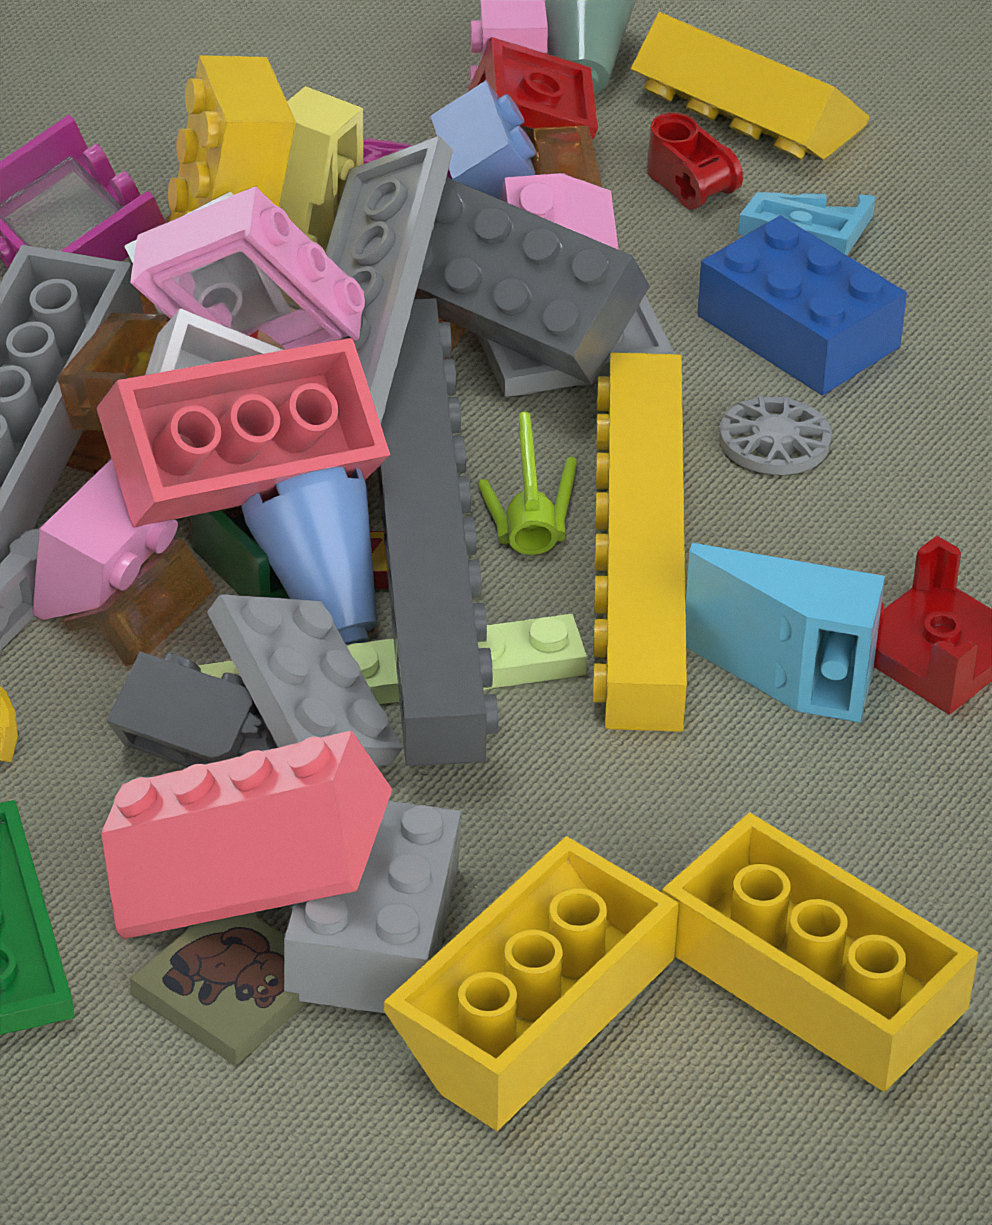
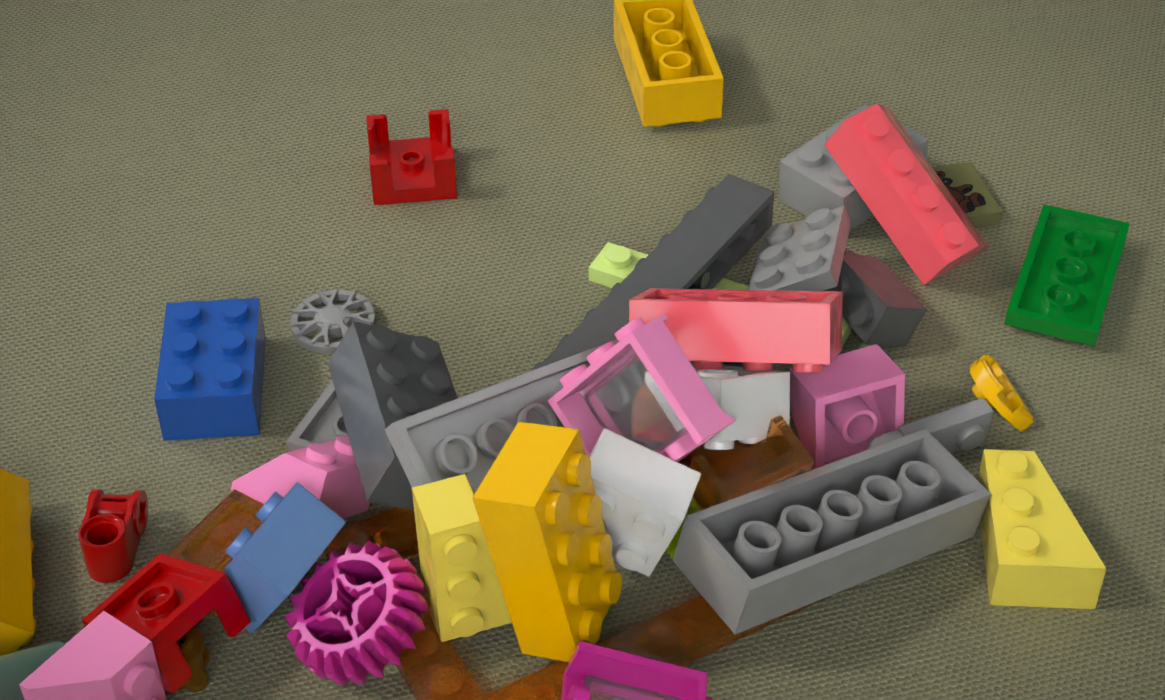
camera: 140 degrees left, 0 degrees up
(531, 518) = (541, 329): lime plant -> none
(533, 980) = (806, 91): yellow slope -> none
(642, 546) = (517, 266): yellow brick -> none
(786, 627) = (497, 167): medium azure slope -> none
(833, 225) = (103, 439): medium azure wing -> none

